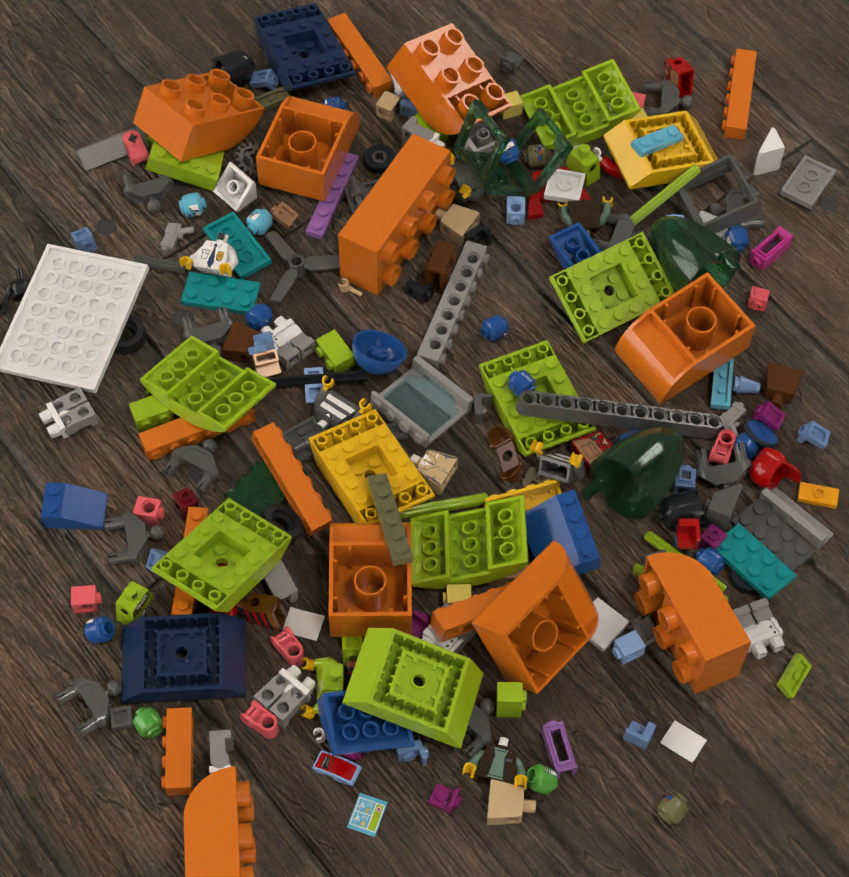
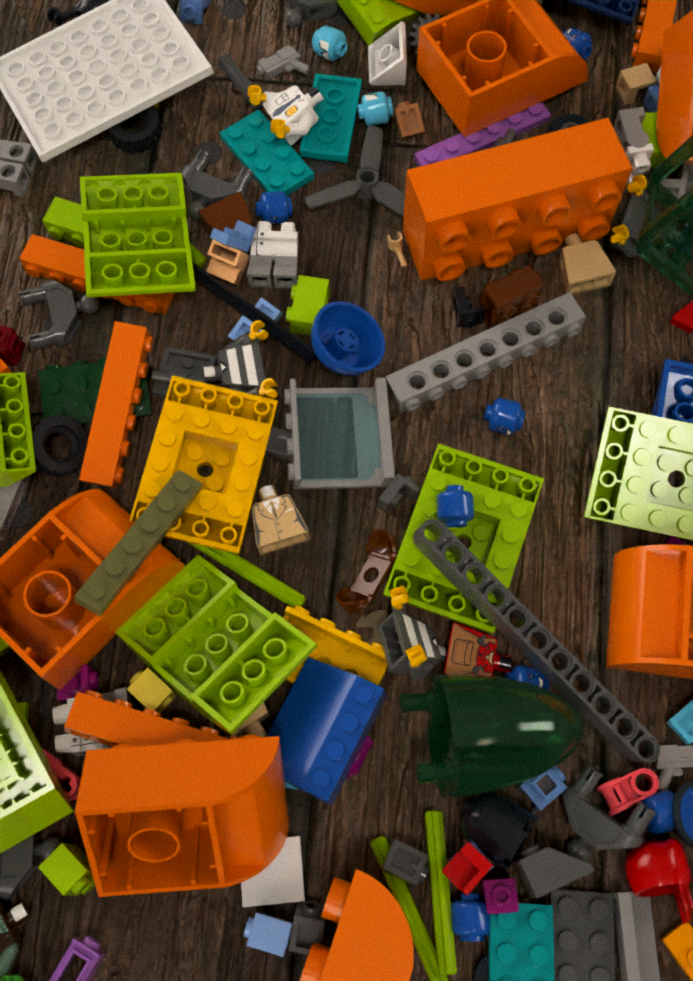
camera: 45 degrees right, 10 degrees up
(479, 233) = (592, 295): black bracket -> none
(515, 210) = (669, 294): light blue brick -> none

